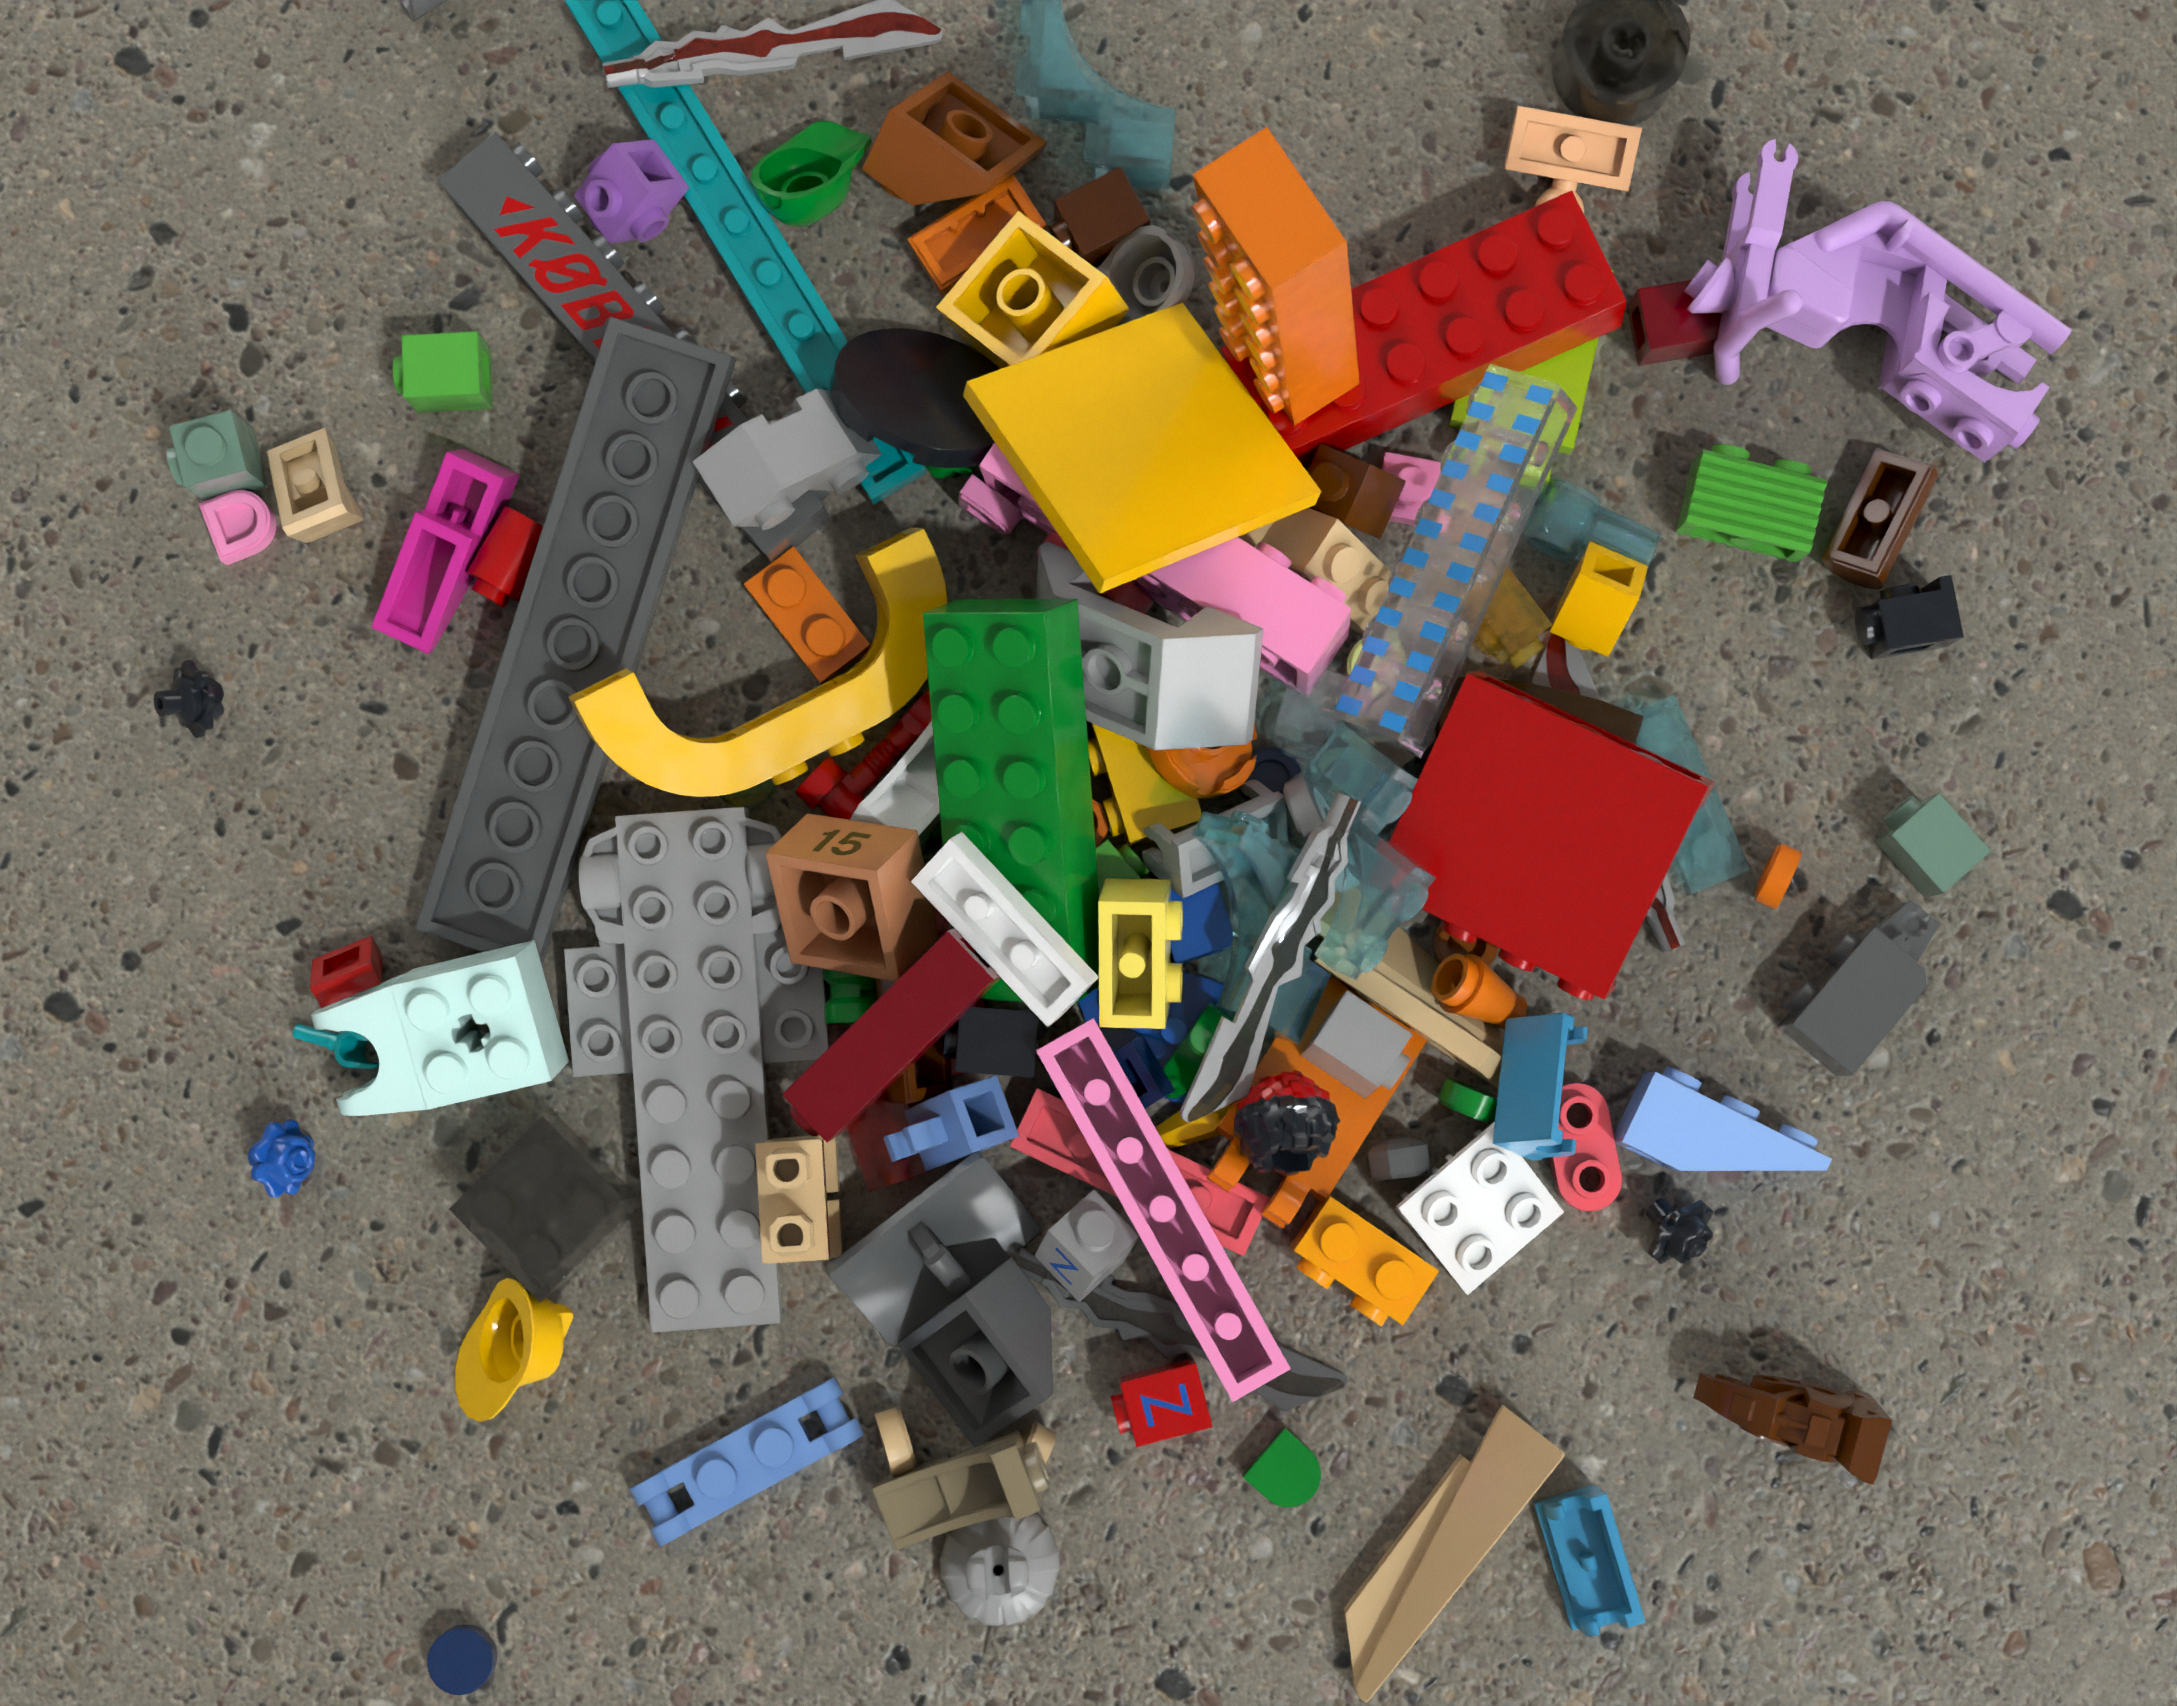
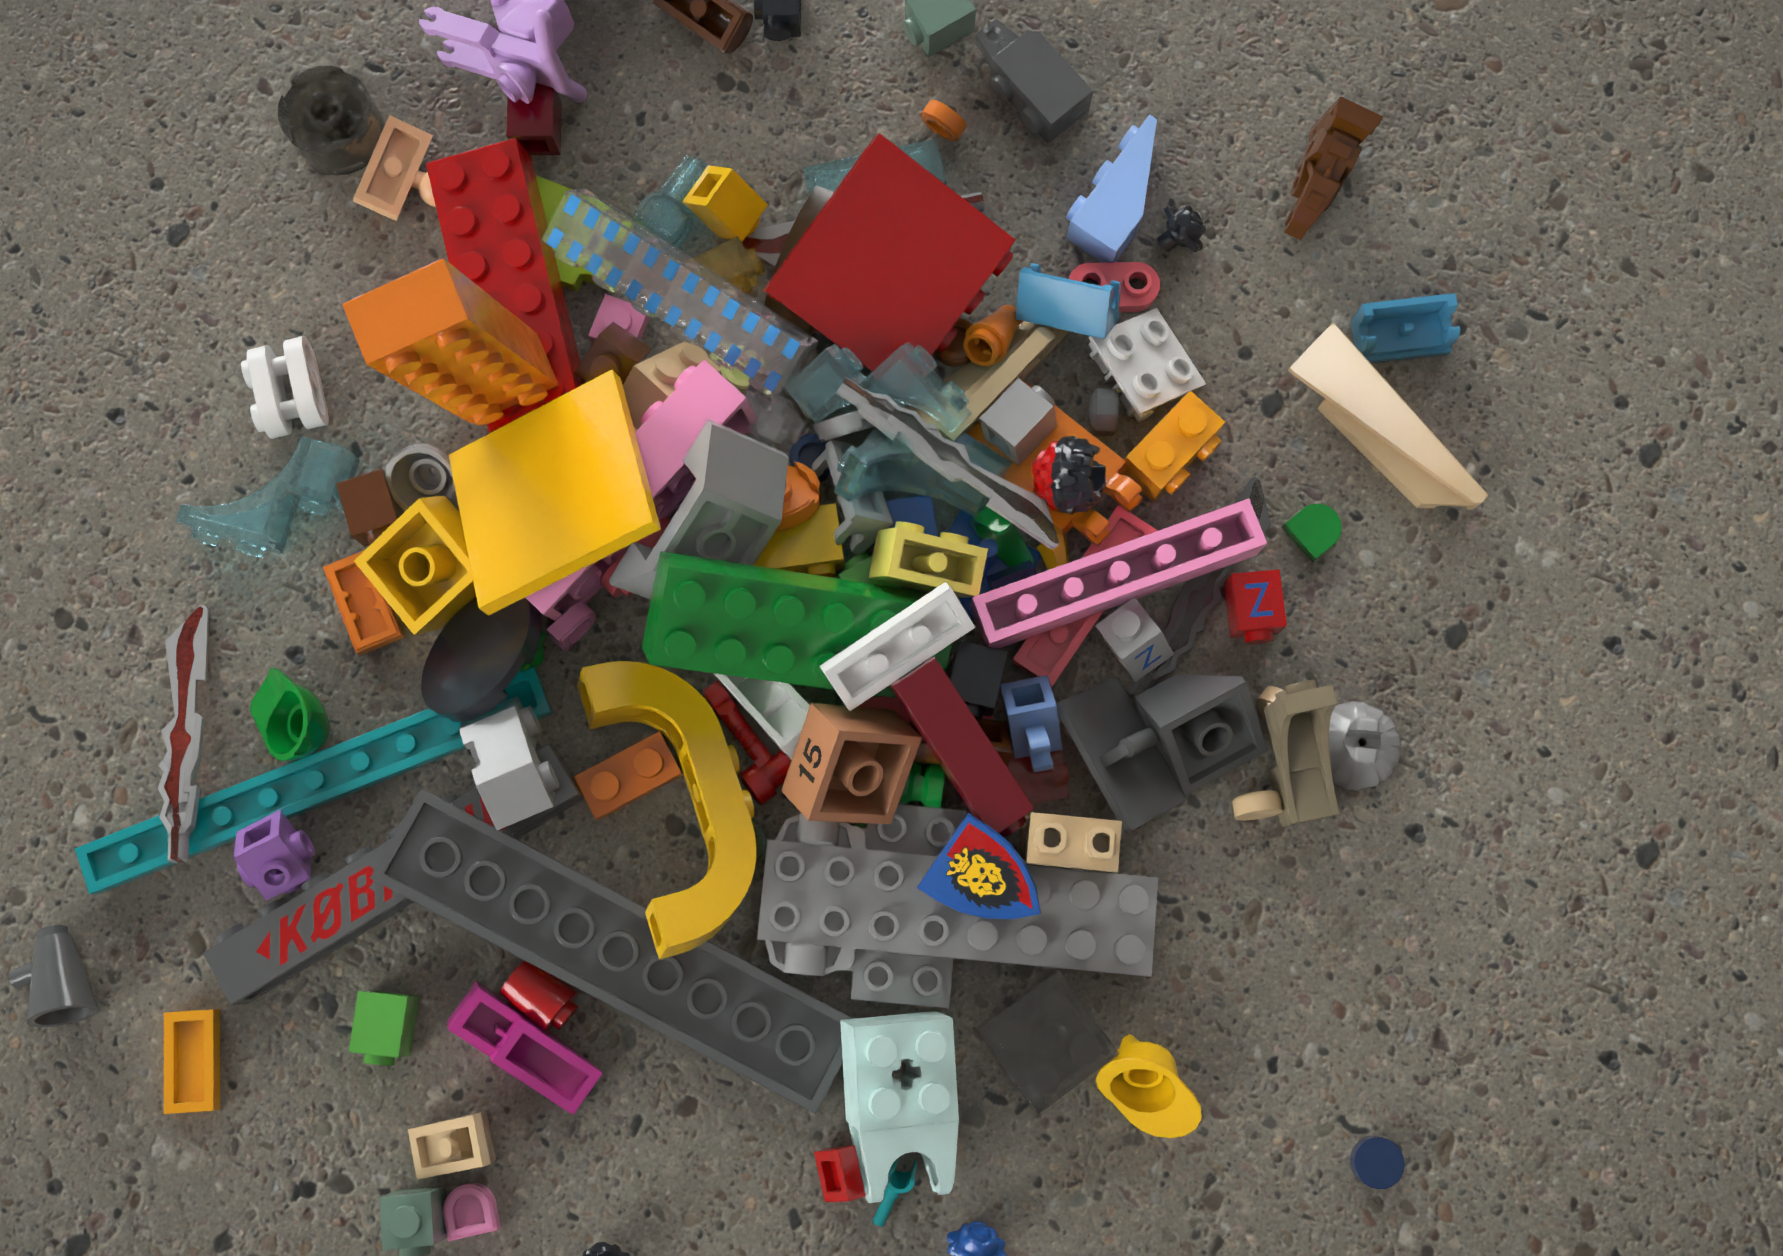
camera: 80 degrees left, 5 degrees down
(370, 147) = (191, 1061): none -> light orange tile
(735, 1089) = (981, 875): none -> shield
(747, 1461) = (1256, 921): medium blue plate -> none
(948, 144) = (292, 610): dark orange slope -> none
(1256, 43) = (264, 374): none -> white brick
(1468, 1100) = (1069, 354): green tile -> none
(1751, 503) = (676, 91): bright green brick -> none

